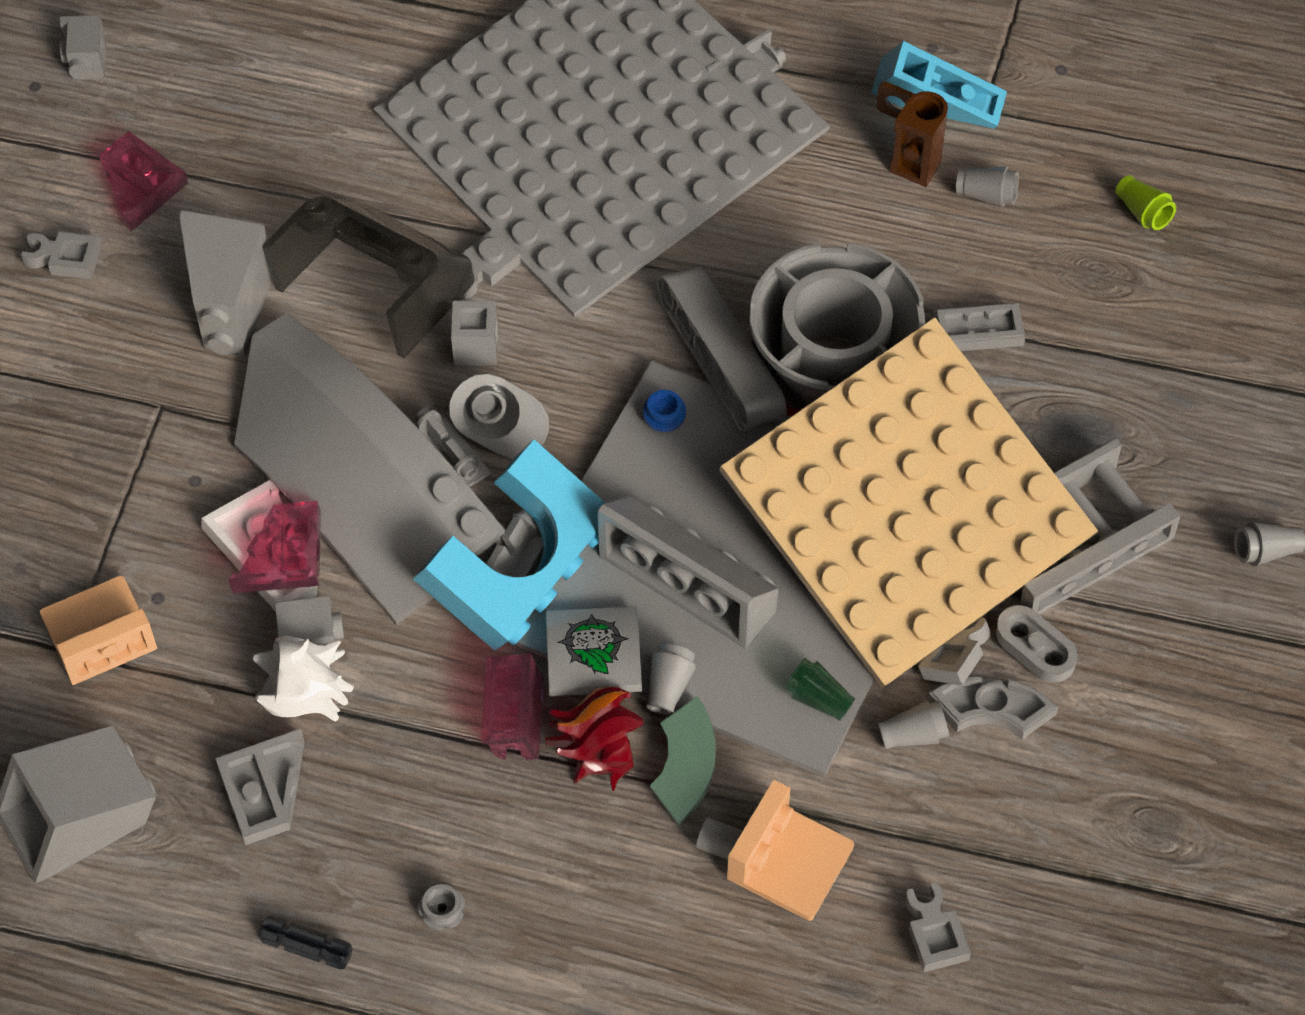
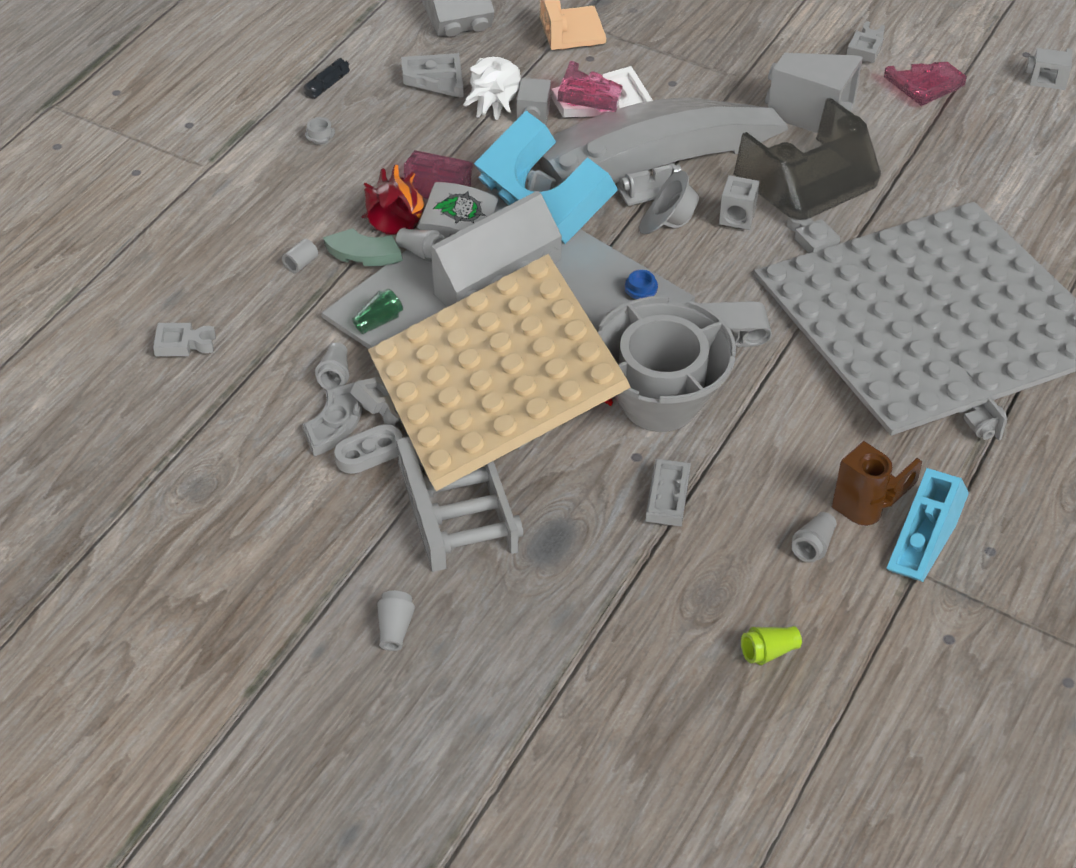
camera: 105 degrees right, 10 degrees down
(787, 855) = (276, 279): light nougat bracket -> none

